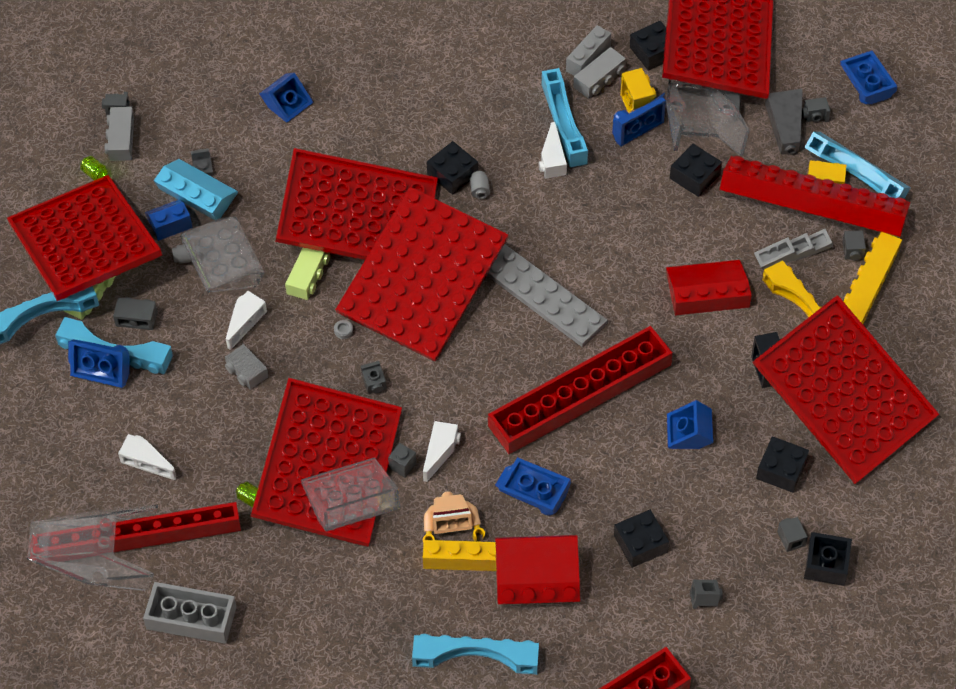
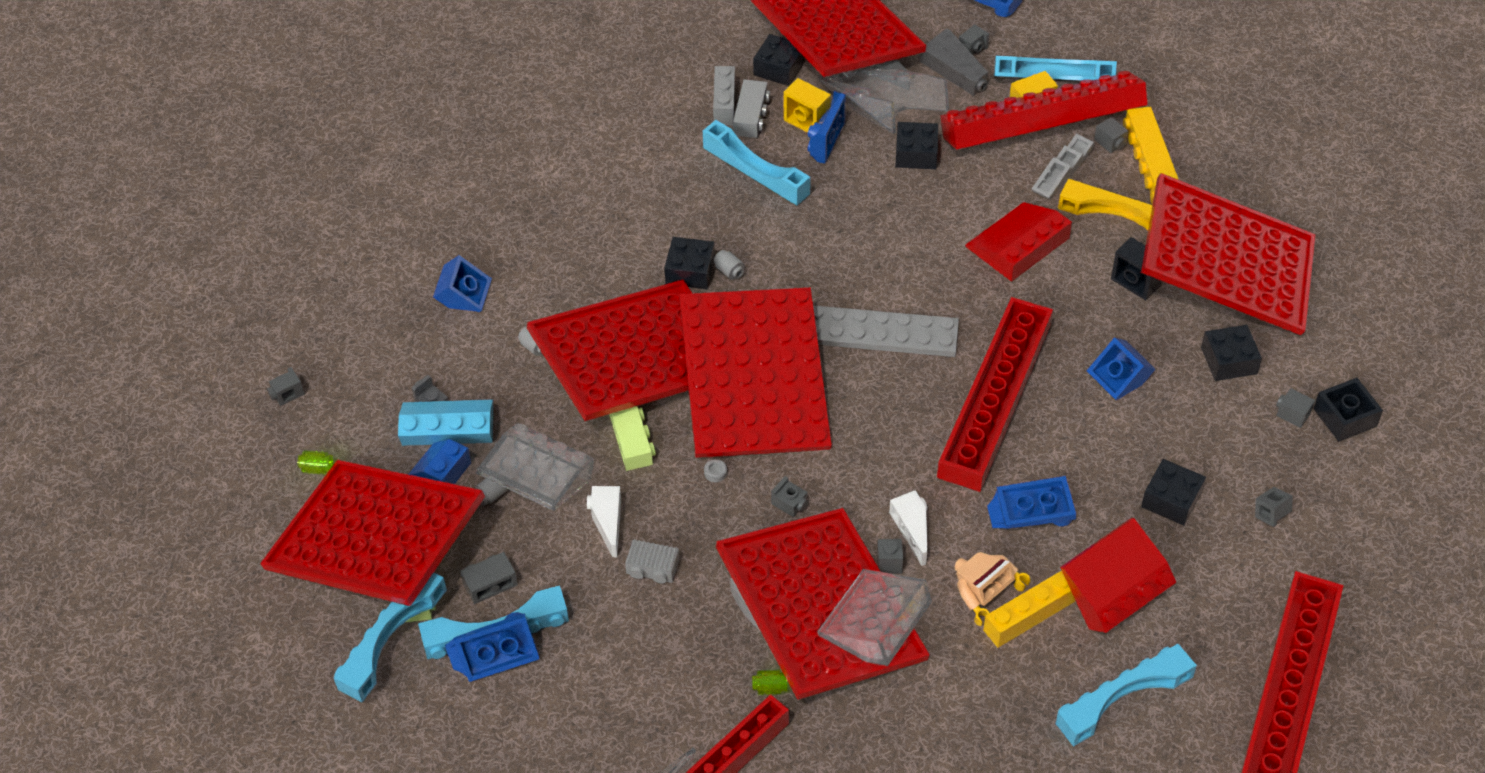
camera: 35 degrees left, 5 degrees down
(120, 133) = (315, 413): light grey brick -> none
(142, 455) = (624, 712): white slope -> none
(552, 156) = (776, 204): white slope -> none

